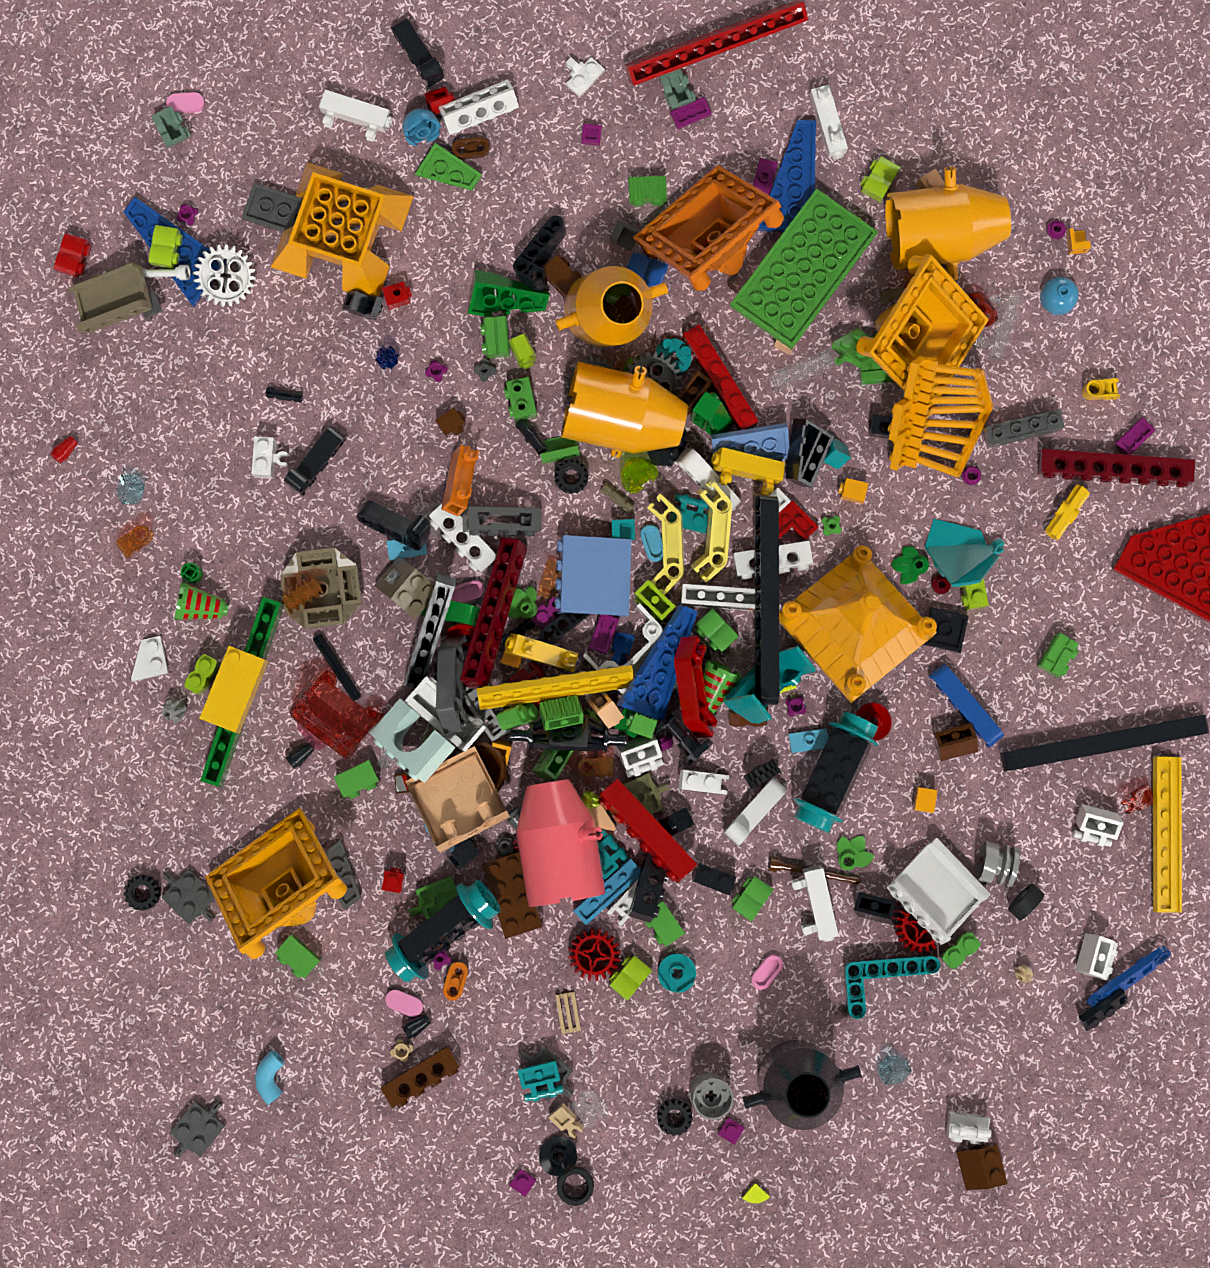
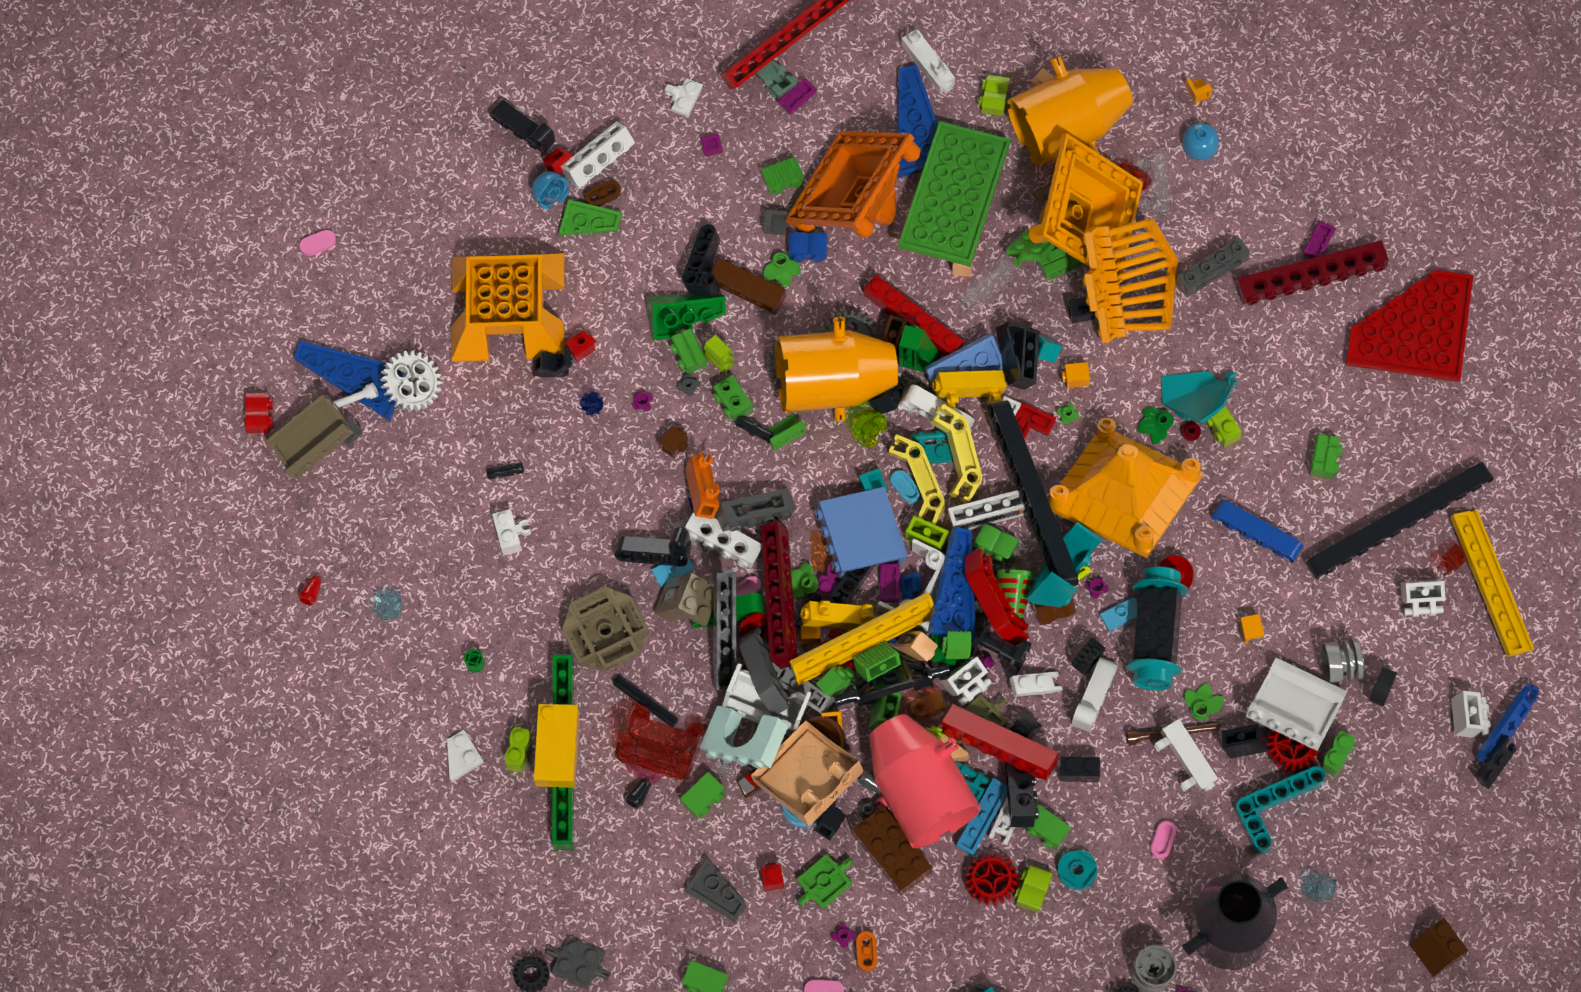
camera: 15 degrees left, 15 degrees down
(133, 542) = (406, 651): clear orange piece -> none
(165, 246) = (346, 374): lime brick -> none
(170, 126) = (312, 268): sand green cylinder -> none
(174, 710) = (502, 792): light grey gear -> none
(184, 209) = (350, 337): magenta plate -> none
(198, 604) = (491, 686): bright green cone -> none
(272, 208) = (436, 308): dark grey plate -> none
(274, 882) = (662, 906): light orange piece -> none
(302, 594) = (589, 637): clear orange piece -> none
(315, 461) = (550, 535): black beam -> none
(356, 112) = (483, 197): white brick -> none
(467, 911) = (837, 900): brick -> none
(570, 1029) = (978, 930): tan tile -> none
(571, 487) = (802, 441): black tyre -> none
(585, 310) = (777, 299): light orange piece -> none
(617, 498) = (856, 457): dark tan axle -> none
(681, 350) = (866, 305): teal plate -> none
(752, 898) = (1123, 775): bright green brick -> none
(765, 175) = (886, 122): magenta plate -> none
(801, 550) = (1046, 444): white brick -> none
(950, 630) = (1215, 470): black plate -> none
(956, 742) = (1262, 565): reddish brown brick -> none
(968, 1127) = (1411, 915): white brick -> none
(971, 469) = (1181, 320): magenta plate -> none
(1023, 973) = (1407, 755): tan plate -> none
(1056, 235) = (1174, 90): magenta plate -> none
(1067, 512) = (1282, 327): yellow piece -> none
(1105, 389) = (1274, 207): yellow piece -> none

